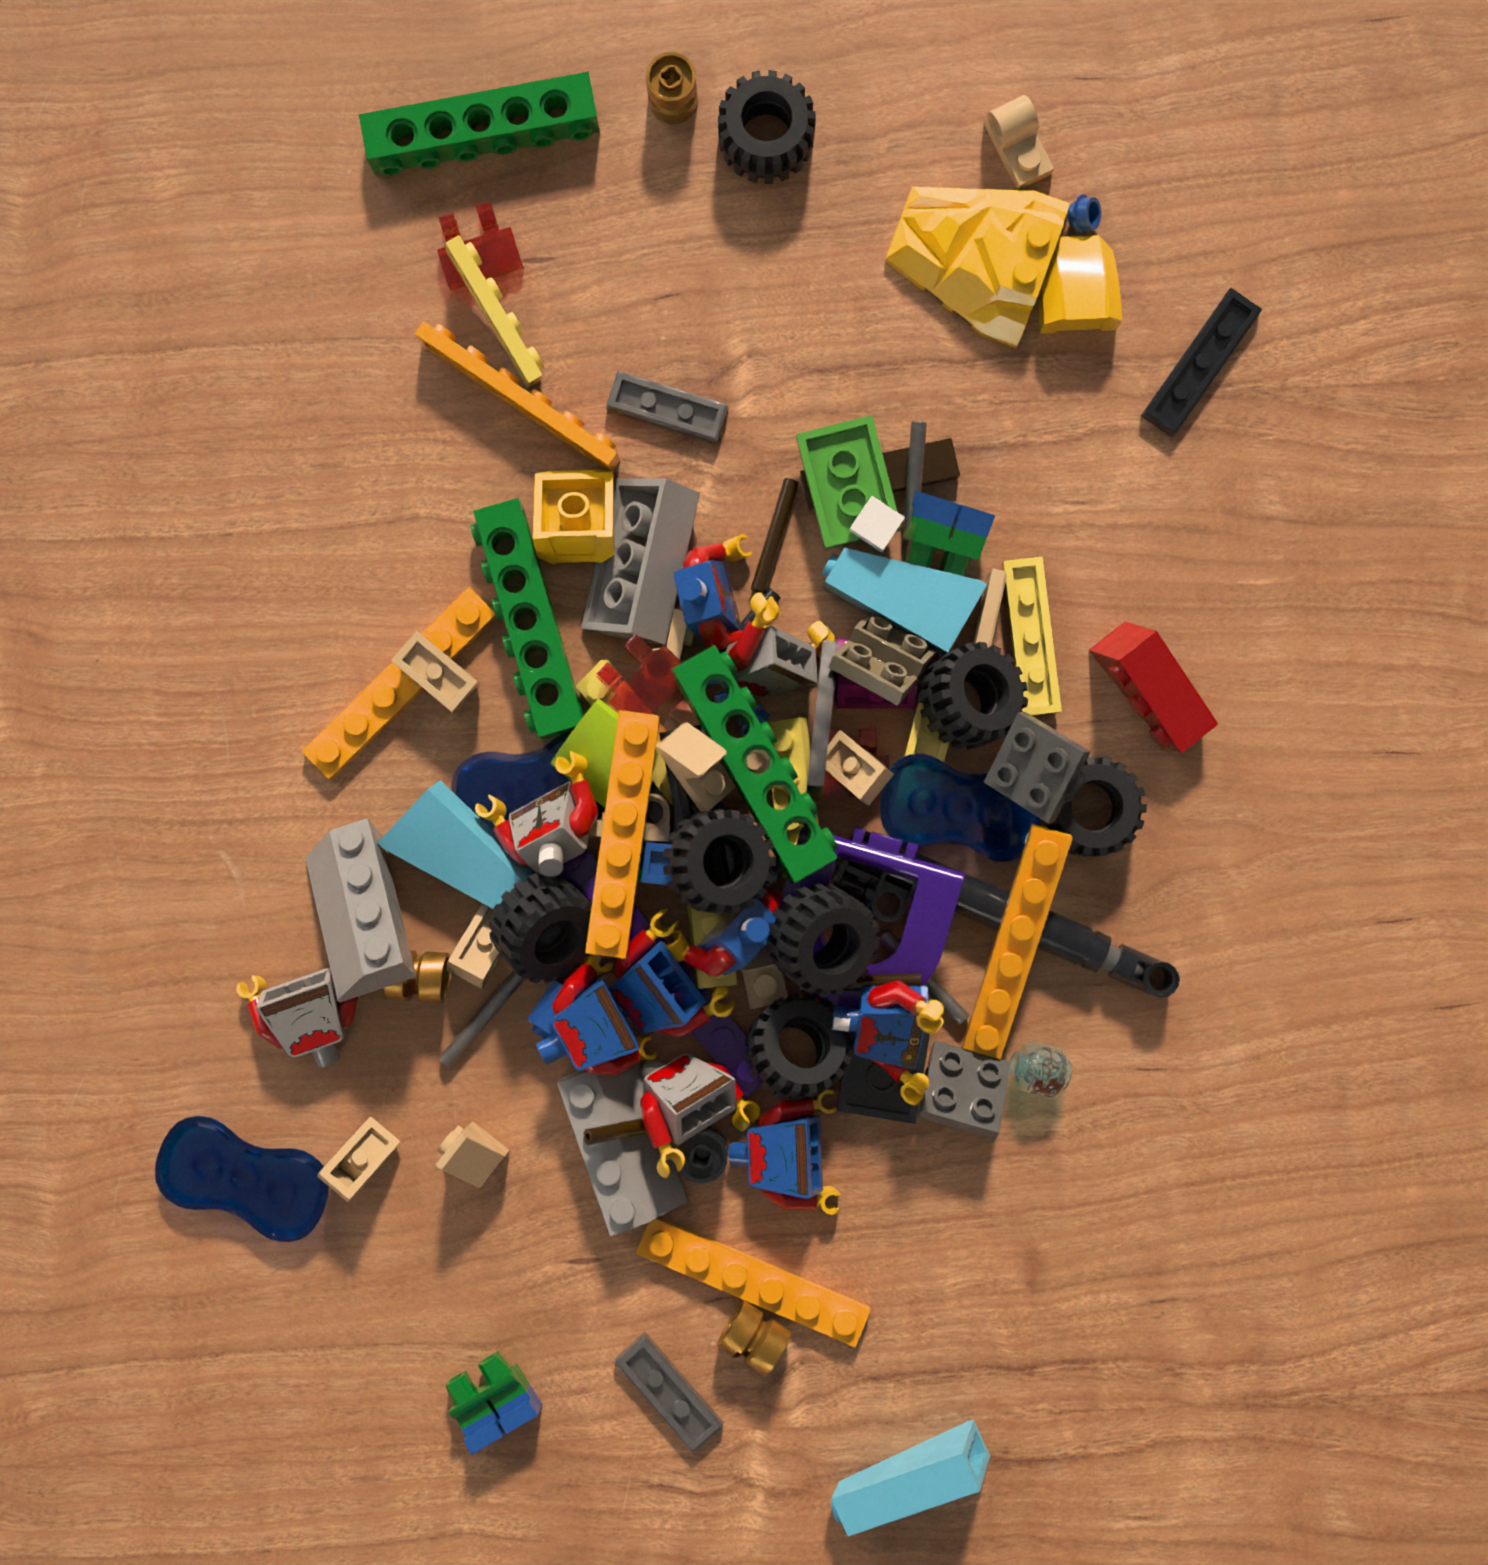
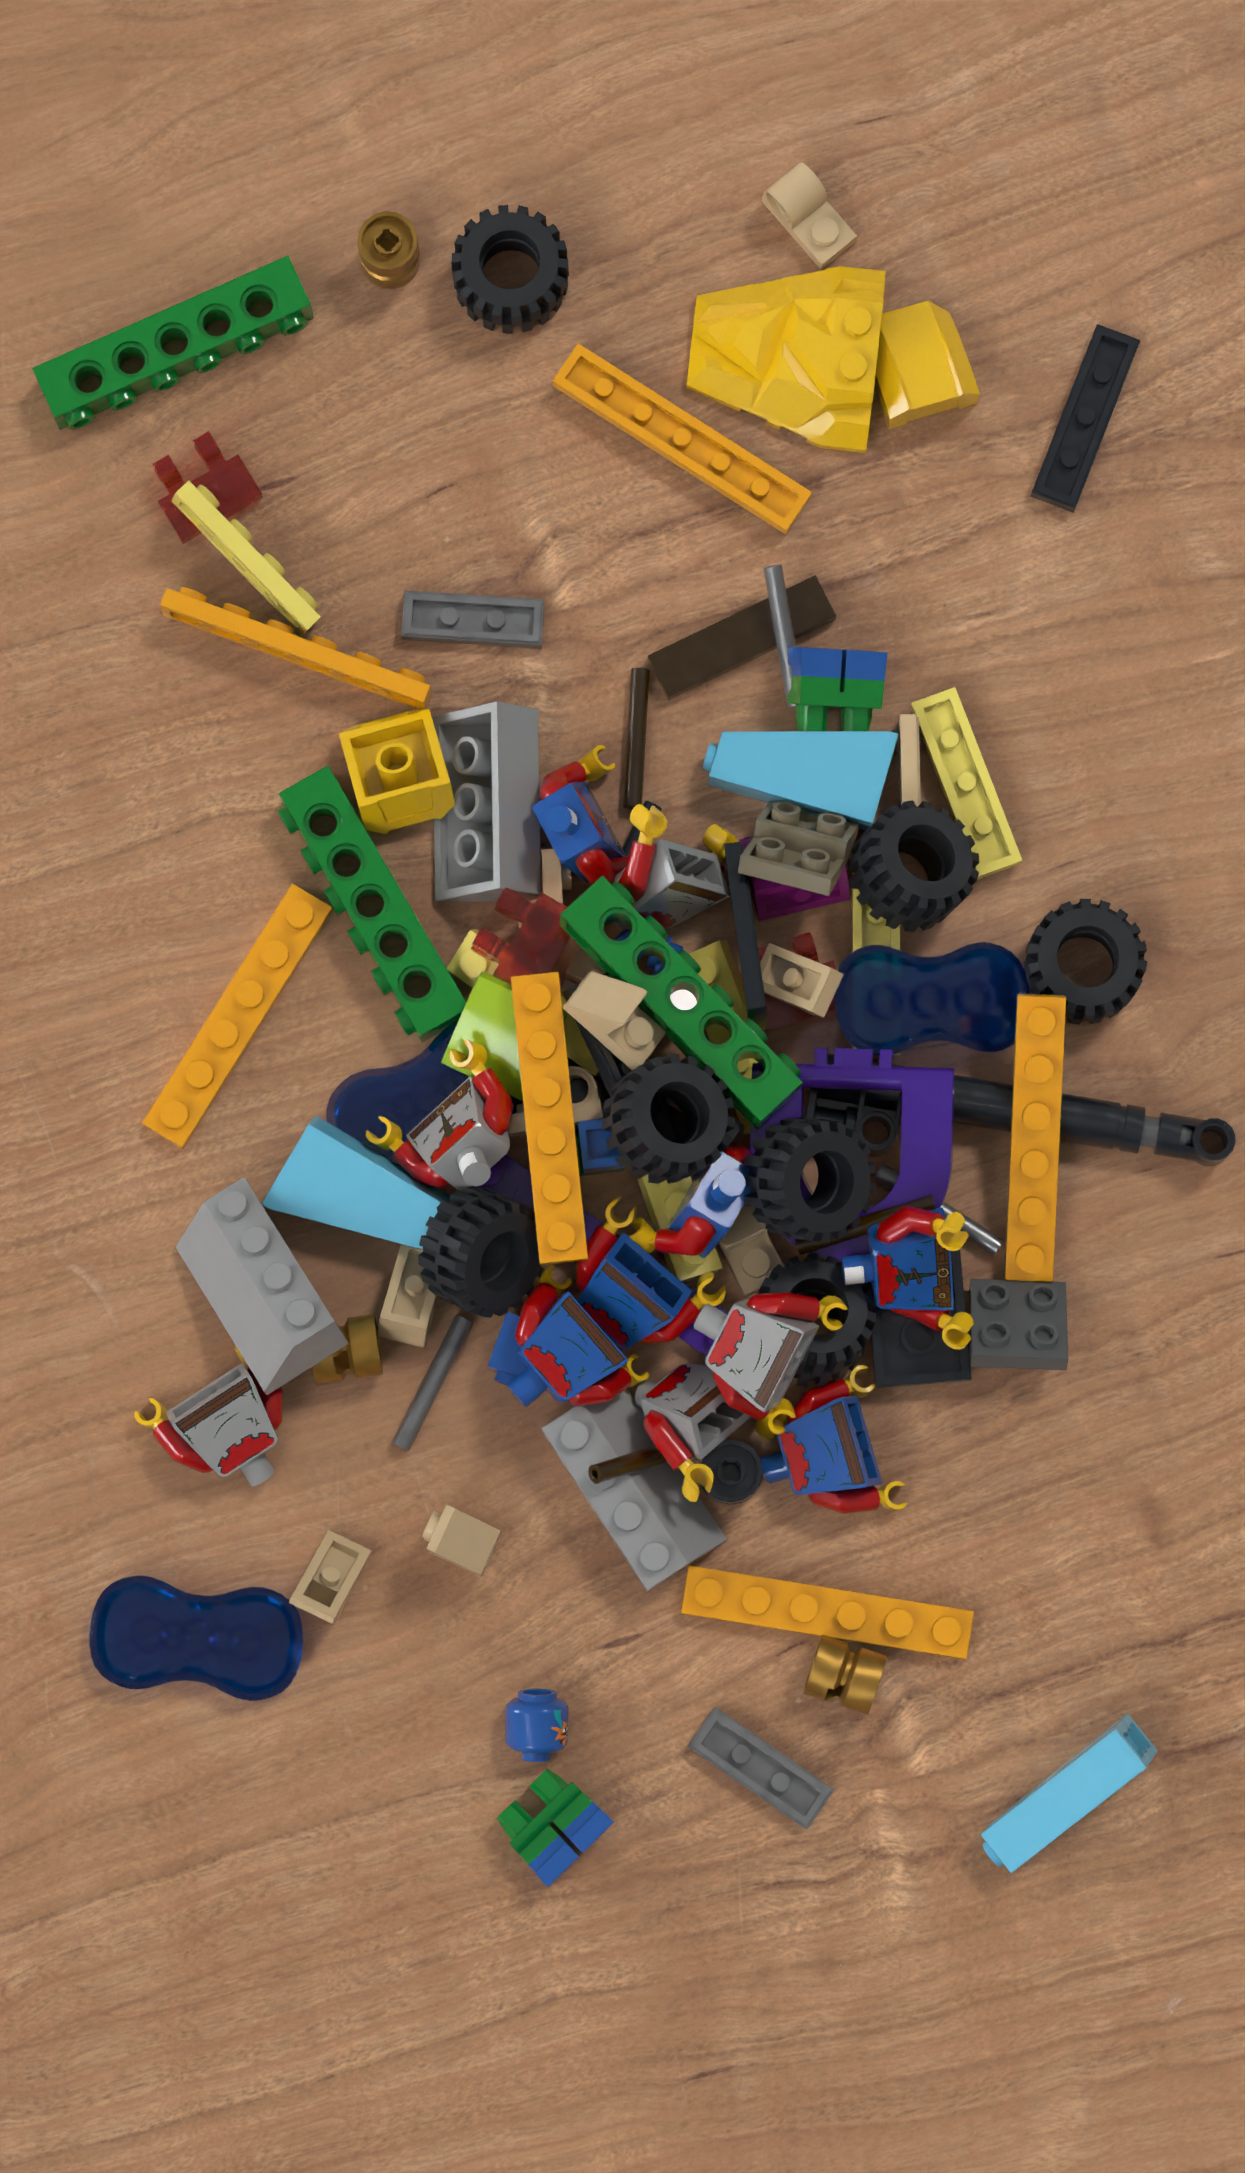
camera: 15 degrees left, 5 degrees down
(435, 671) = (280, 990): tan plate -> none
(497, 1315) = (536, 1724): none -> blue head
(751, 1068) = (762, 1348): none -> torso
(842, 474) = (708, 656): bright green plate -> none
(871, 300) = (682, 438): none -> light orange plate
(876, 524) = (753, 695): white tile -> none
(1038, 767) = (1007, 927): dark grey plate -> none
(1040, 1069) = (1101, 1280): clear light blue head -> none
(1084, 214) = (906, 280): blue plate -> none
(1154, 685) = (1123, 804): red wedge -> none

